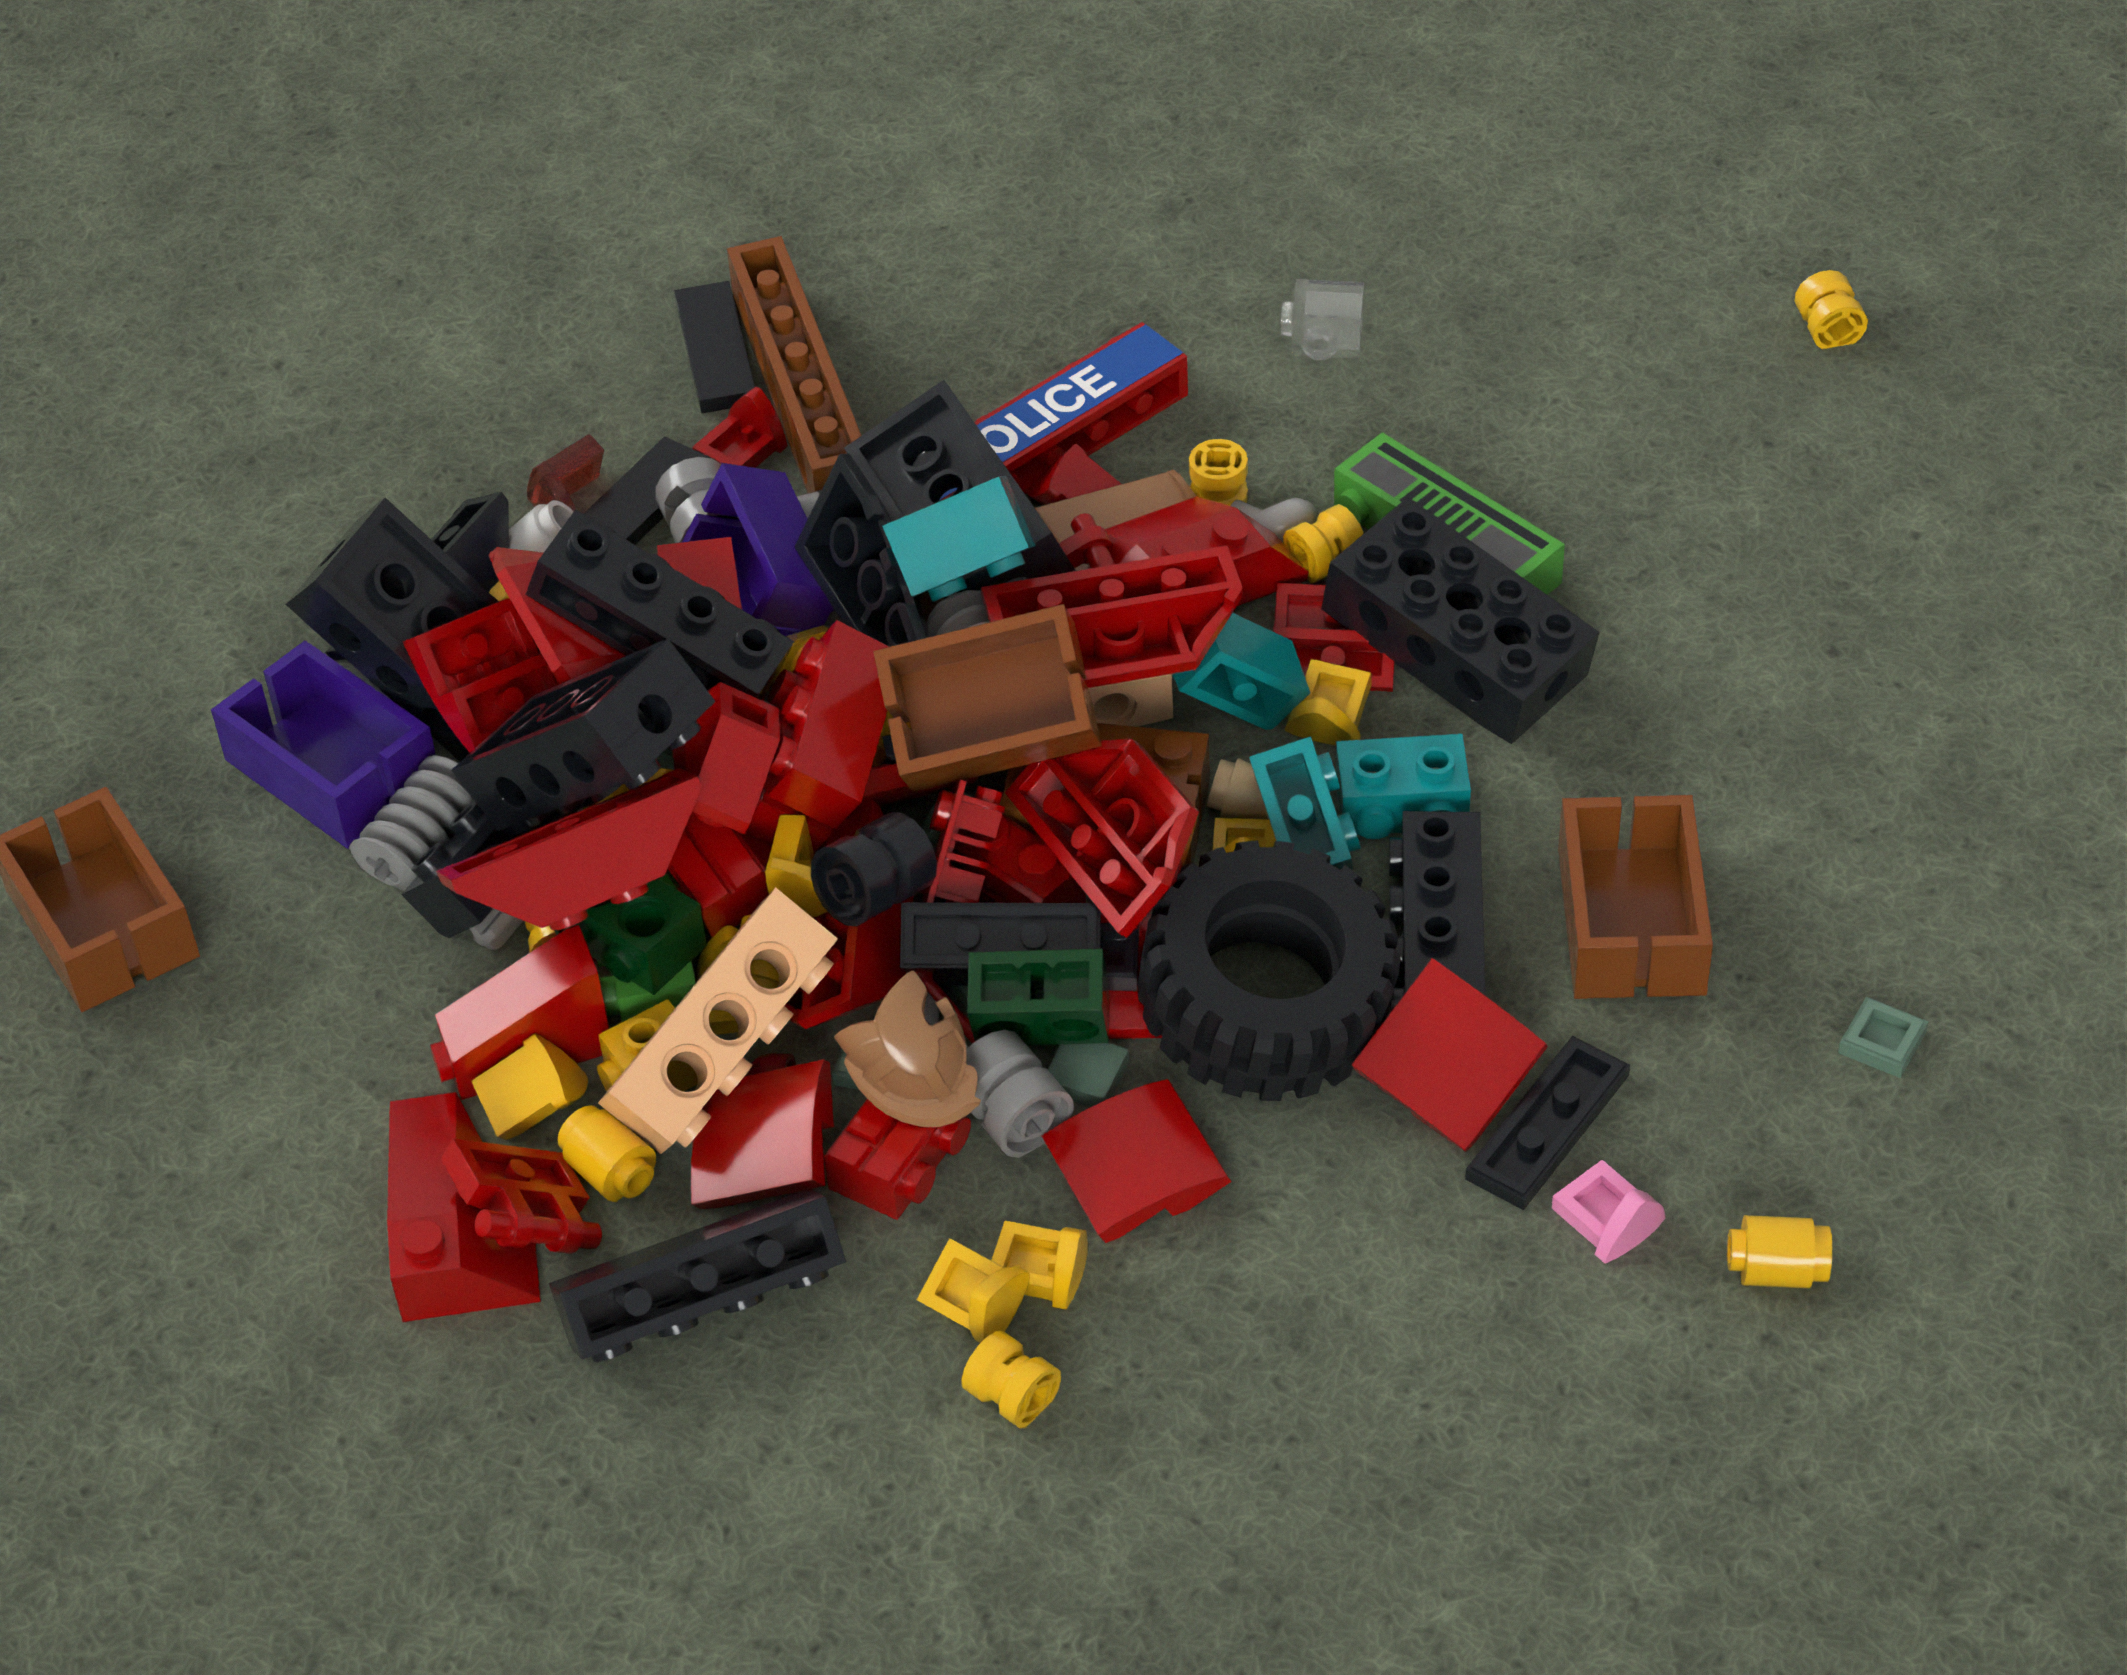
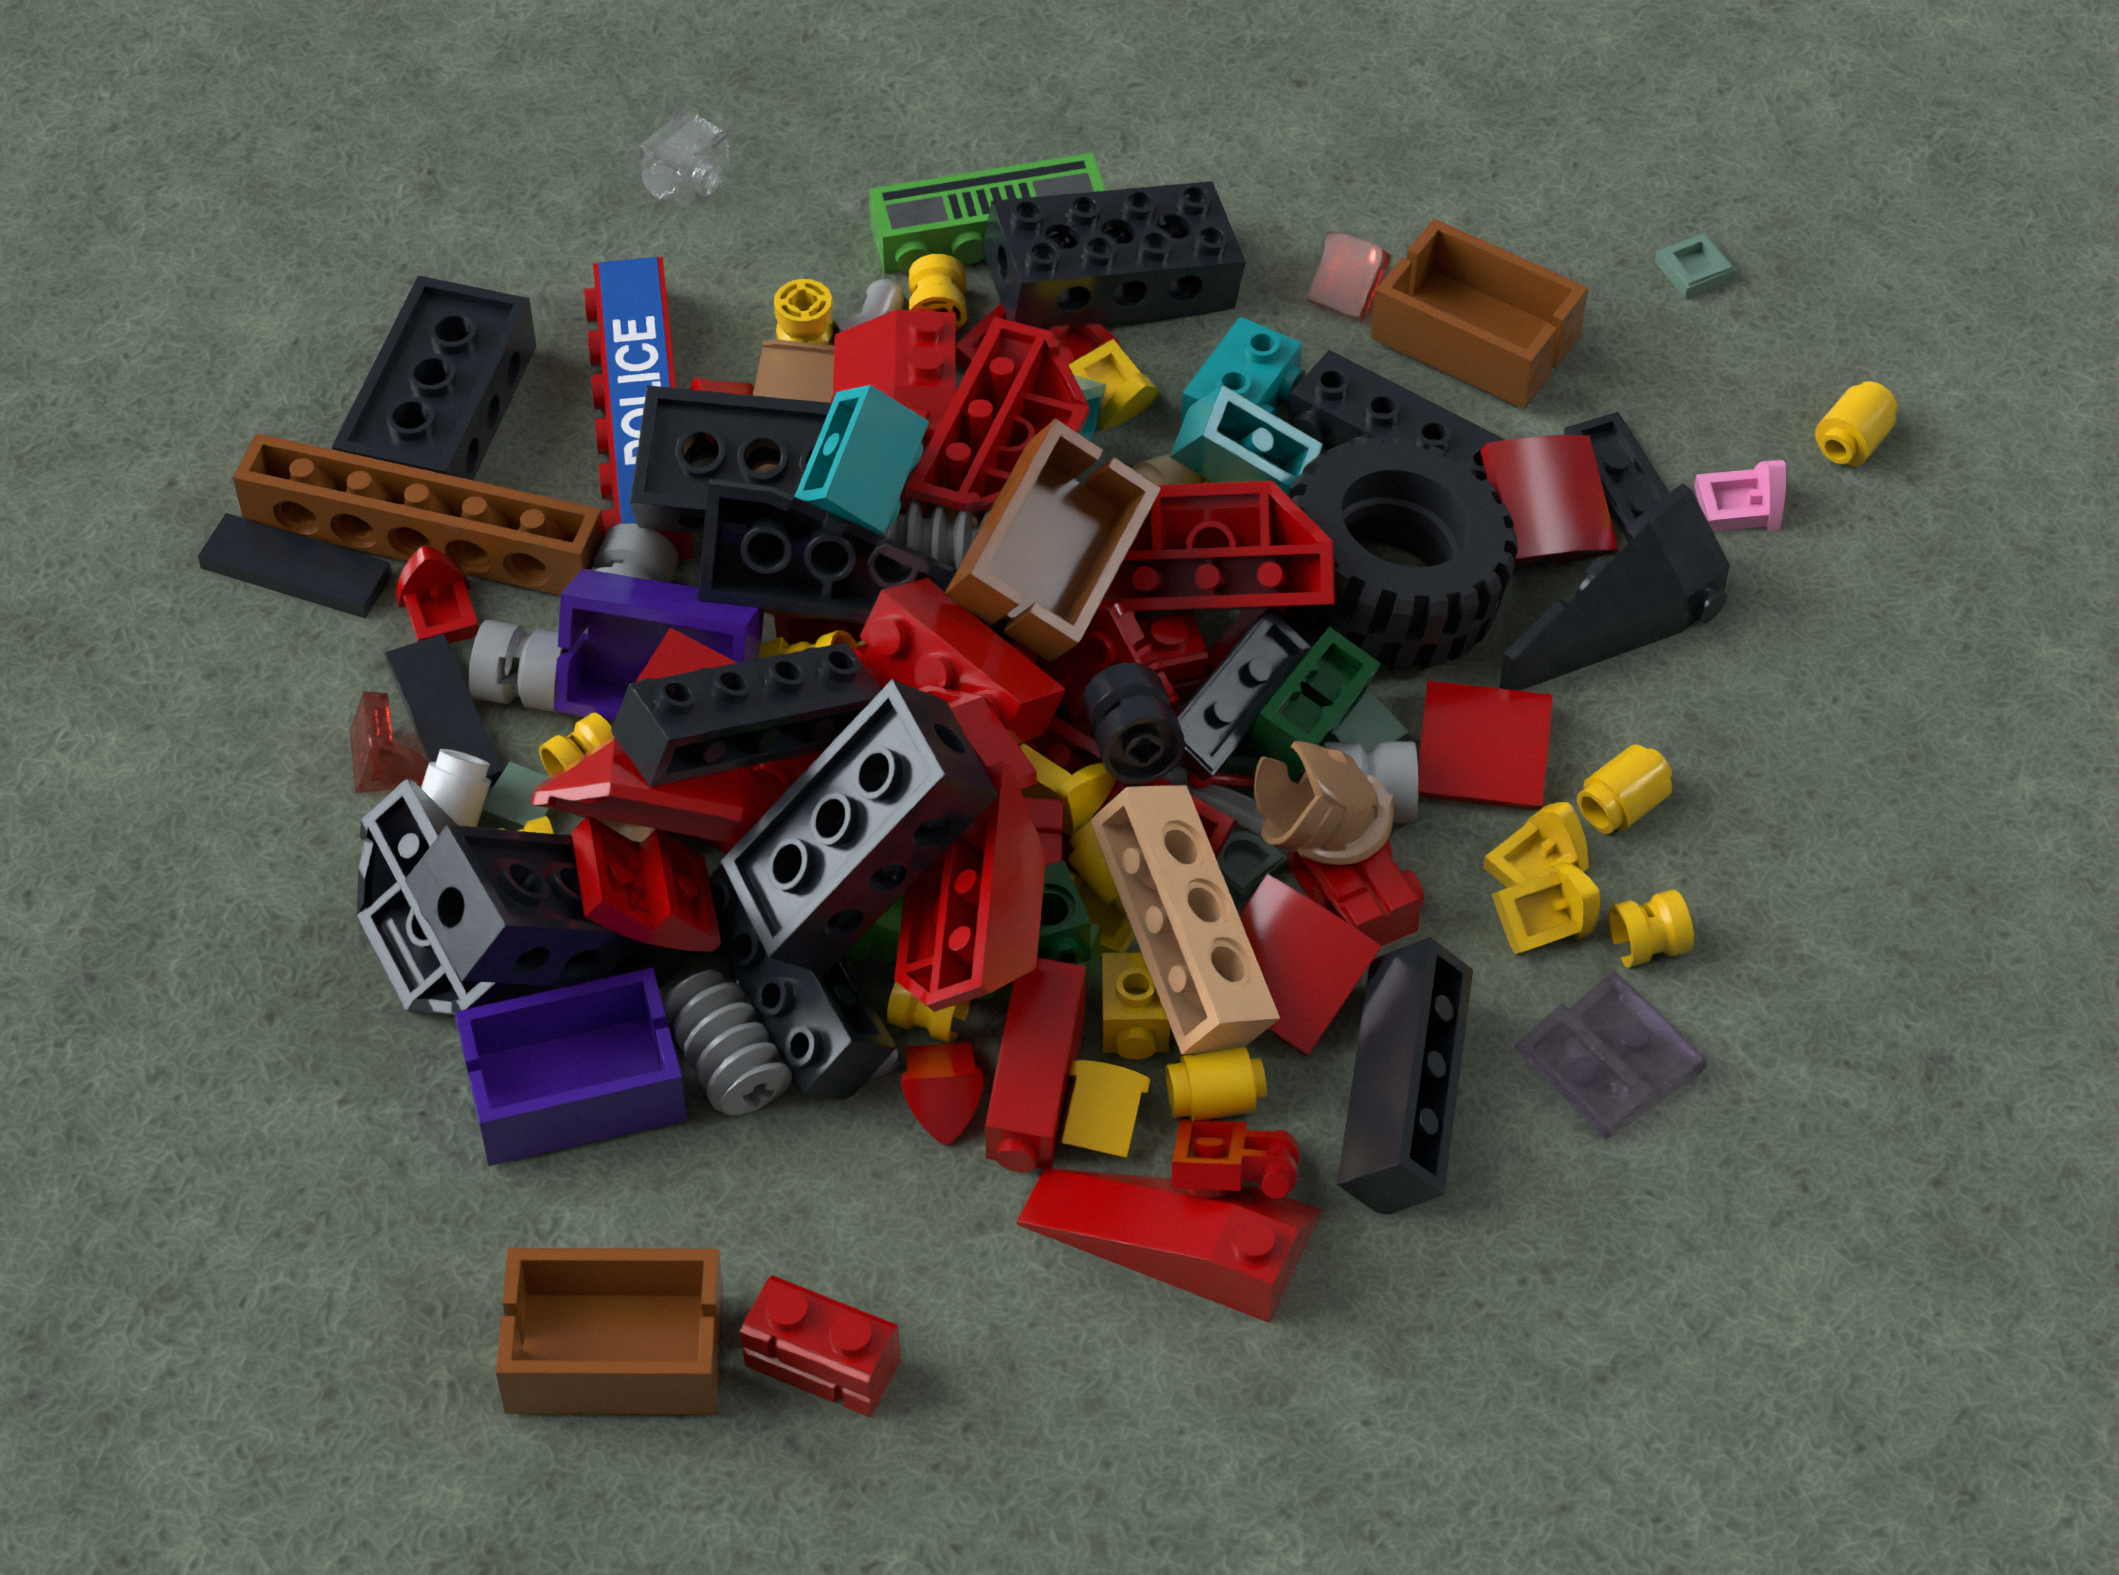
camera: 60 degrees left, 5 degrees up
(168, 1032) = (820, 1345): none -> red brick
(468, 965) = (942, 1087): none -> red tile
(853, 1424) = (1610, 1055): none -> clear purple slope
(934, 315) = (451, 331): none -> black brick
(1162, 1284) = (1625, 789): none -> yellow brick
(1403, 1175) = (1645, 594): none -> black wedge
(1614, 775) = (1348, 275): none -> clear red tile

